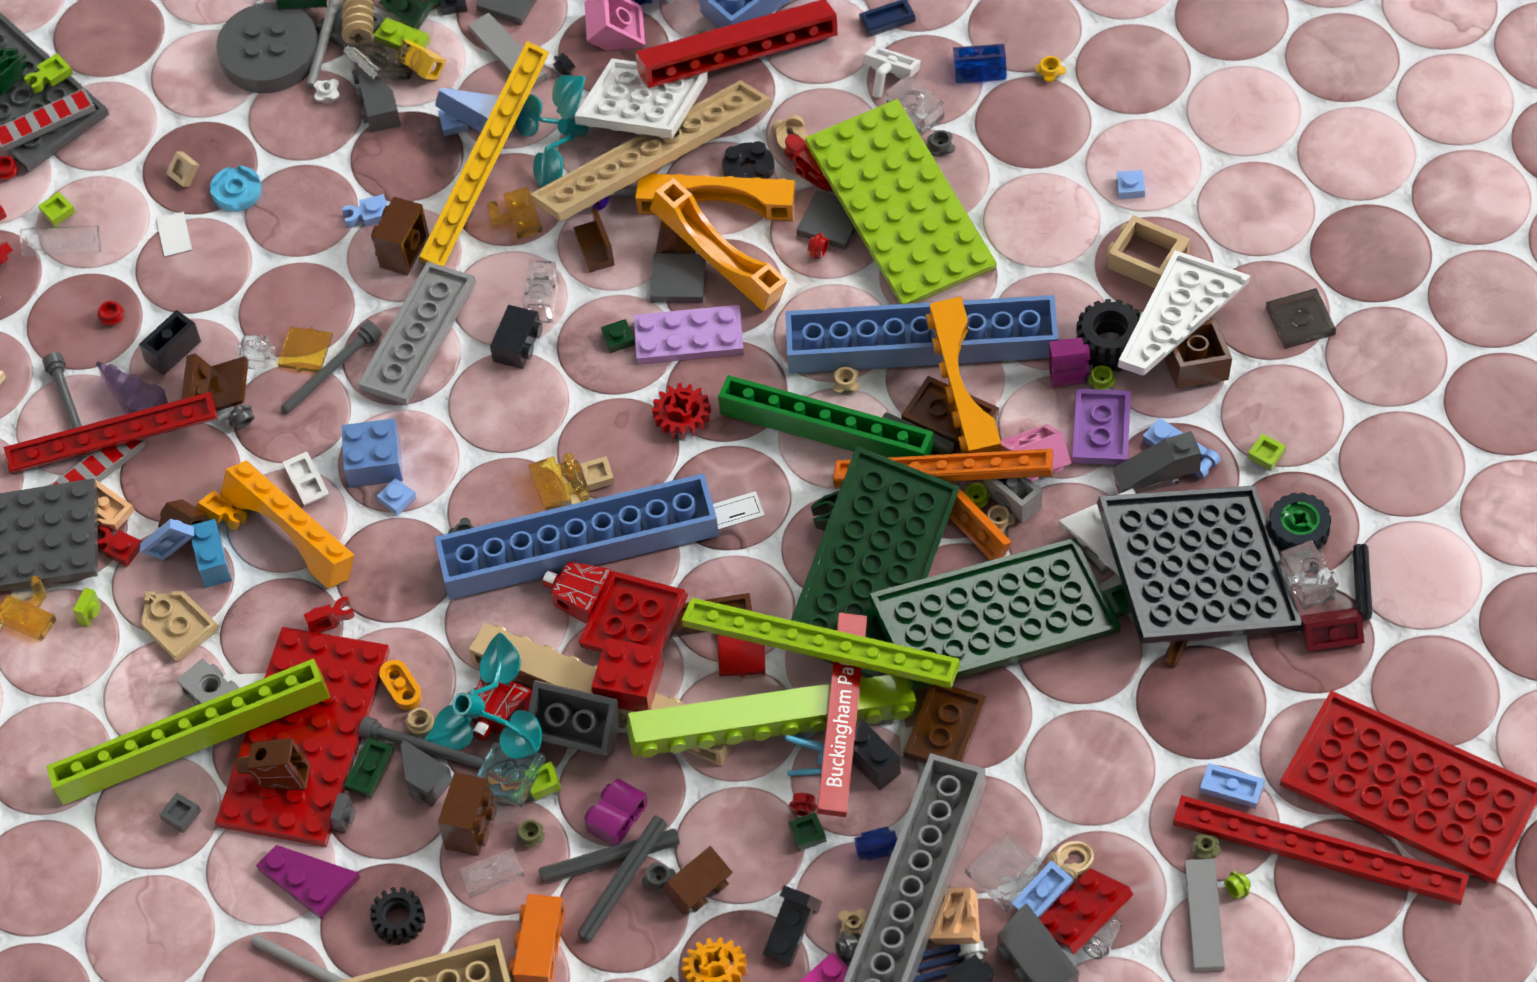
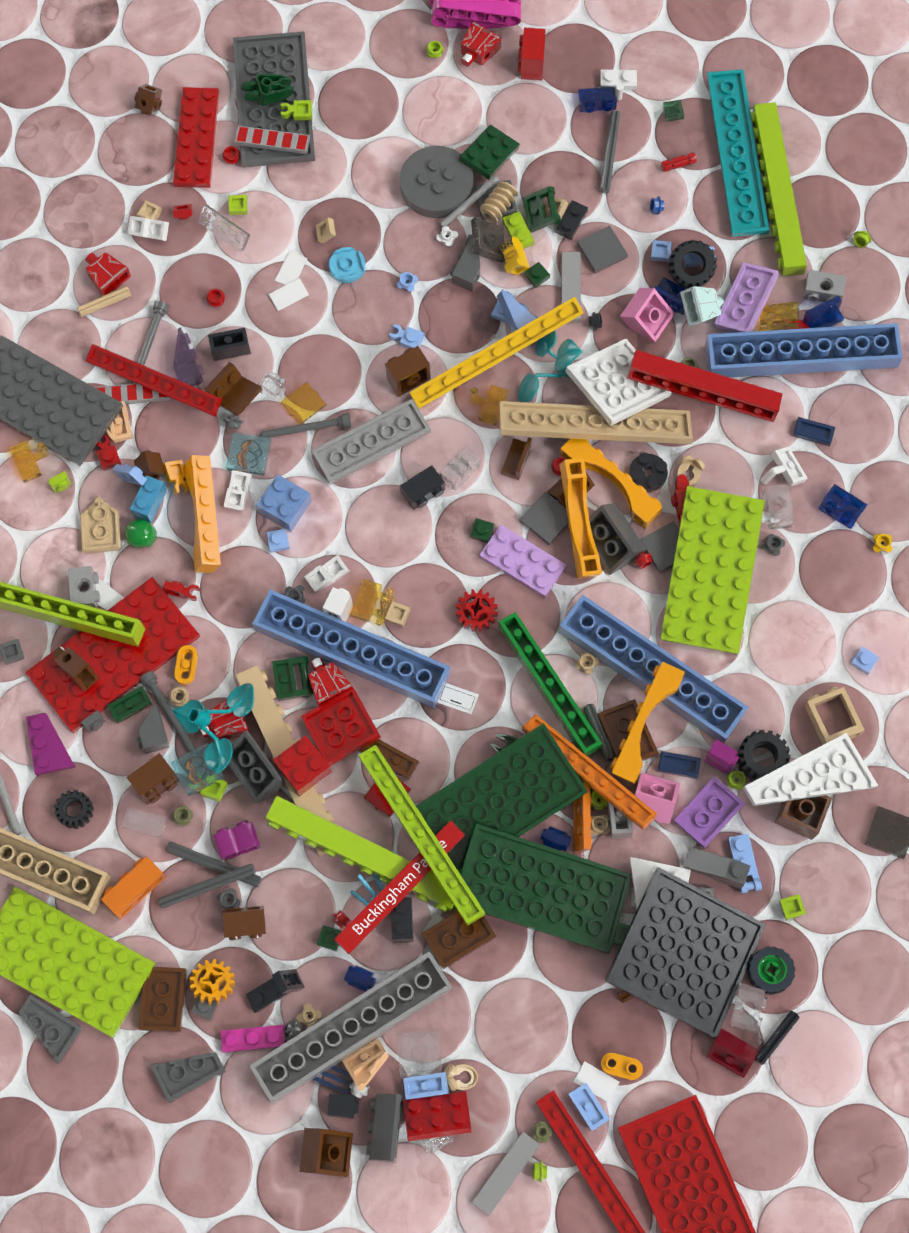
camera: 35 degrees right, 15 degrees up
(193, 258) = (288, 294): none -> white sticker
(228, 595) = (140, 533): none -> green hair
(285, 436) = (248, 454): none -> clear light blue tile
(319, 159) = (407, 276): none -> light blue plate
(459, 64) = (537, 274): none -> dark green plate
(482, 490) = (327, 574): none -> white slope
(524, 496) = (338, 604): none -> white brick
(528, 620) = (285, 678): none -> dark green plate
(648, 221) = (555, 465): none -> red plate
(770, 242) = (614, 538): none -> dark grey slope
(963, 558) = (555, 838): none -> clear blue brick
(1029, 407) = (679, 765): none -> dark blue tile
(1225, 756) = (599, 1082): none -> white sticker
(1232, 725) = (621, 1067): none -> light orange plate

